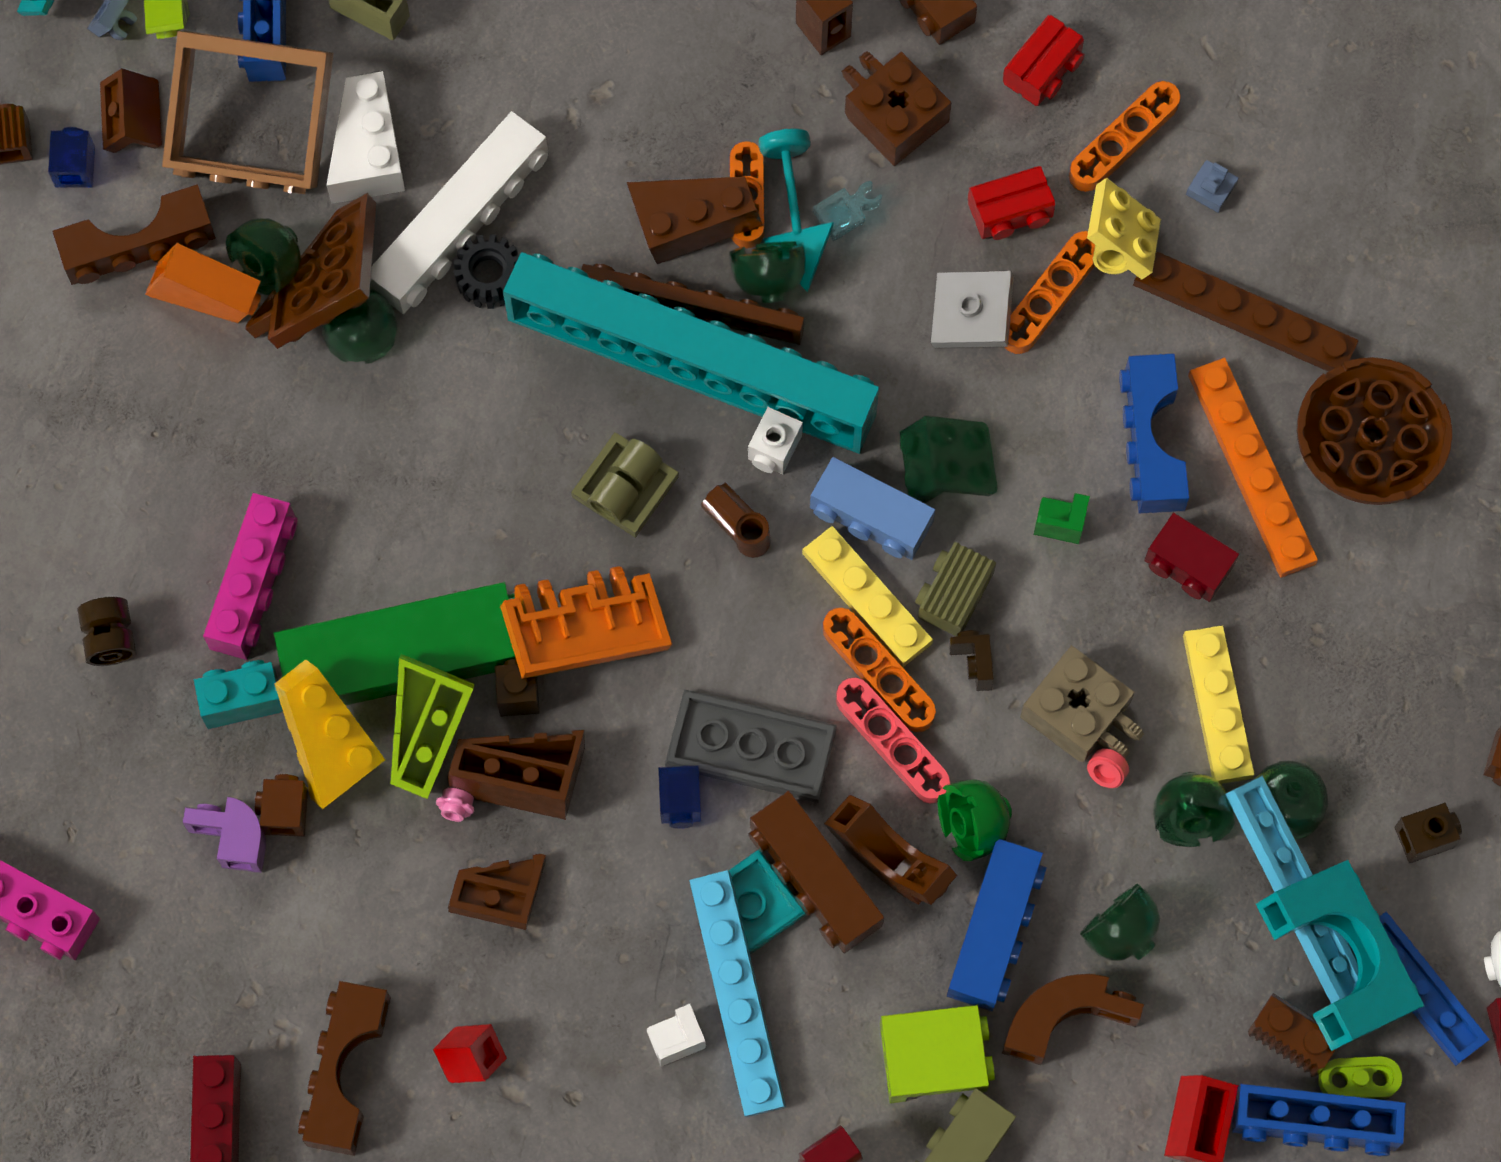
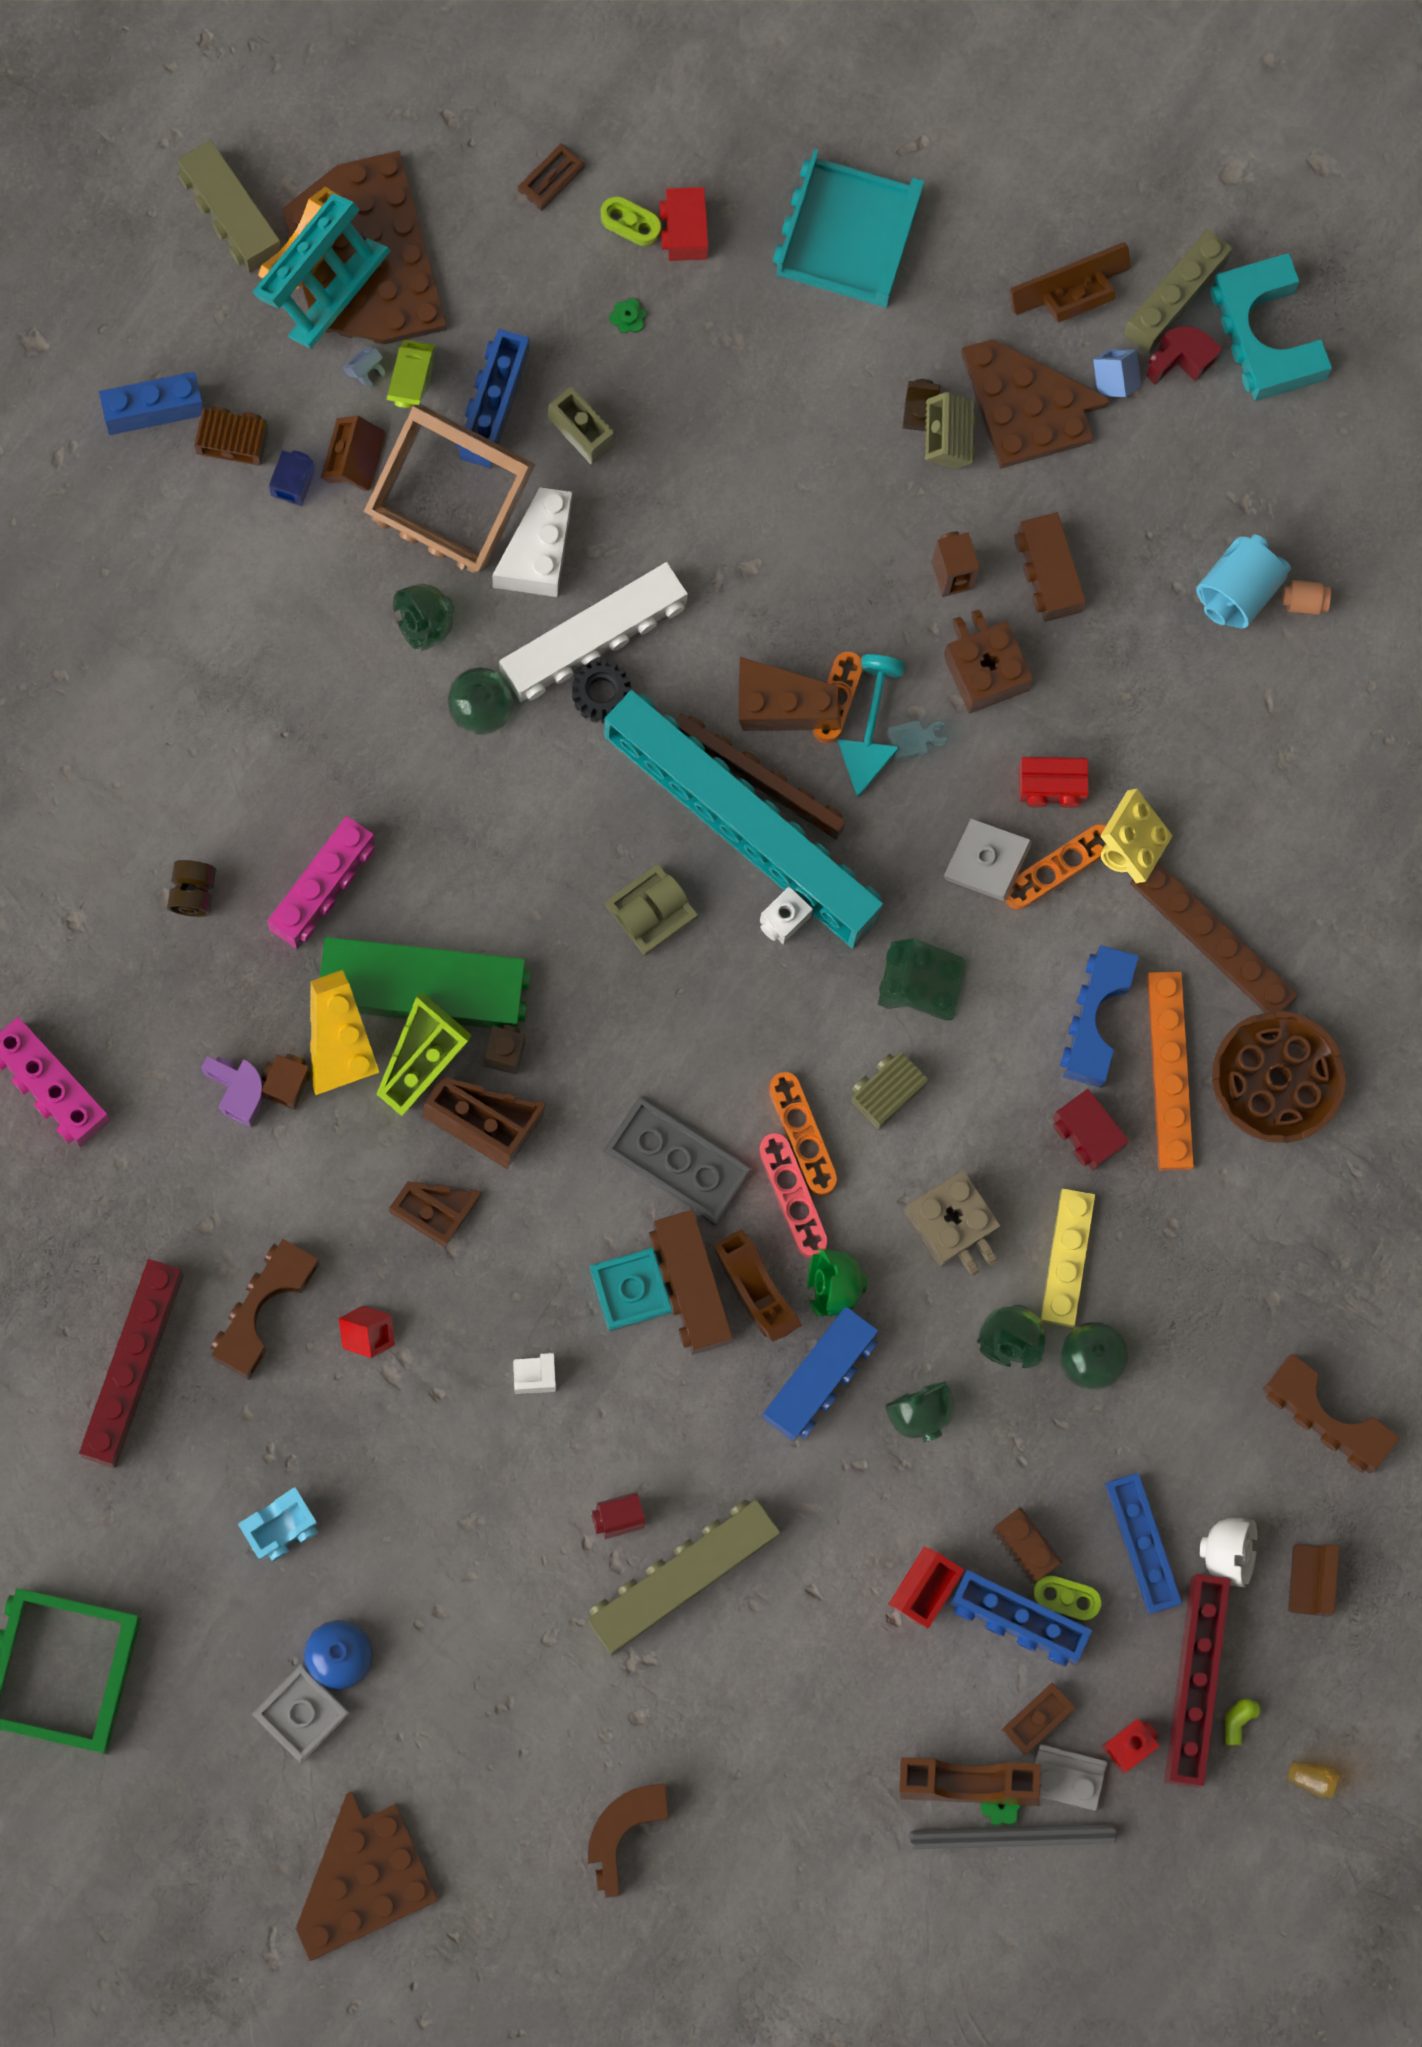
camera: 10 degrees right, 5 degrees up
(93, 253) = (362, 564): reddish brown arch -> none
(203, 285) = (364, 624): orange slope -> none
(237, 694) = (279, 976): teal brick -> none
(329, 280) = (469, 654): reddish brown wing -> none
(455, 804) = (423, 1127): bright pink plate -> none
(586, 626) = (578, 1018): orange hinge -> none
(679, 796) = (605, 1182): clear blue brick -> none
(737, 518) = (731, 969): reddish brown piece -> none
(737, 994) = (595, 1357): medium azure plate -> none
(769, 269) = (832, 769): clear green cylinder -> none
(867, 596) = (815, 1070): light yellow plate -> none
(871, 509) = (843, 1000): medium blue brick -> none
(935, 1052) = (736, 1460): lime panel -> none
(980, 664) = (885, 1158): dark brown bracket -> none
(1044, 60) = (1125, 667): red brick -> none
(1059, 1001) = (845, 1453): reddish brown arch -> none
(1062, 519) = (997, 1060): green panel -> none
(1108, 768) = (957, 1279): coral tile -> none
(1122, 134) = (1171, 757): orange beam -> none
(1212, 185) = (1226, 821): sand blue tile -> none
(1285, 866) = (1072, 1434): medium azure plate -> none
(1339, 902) = (1101, 1453): teal arch -> none
(1428, 832) = (1197, 1420): dark brown brick -> none

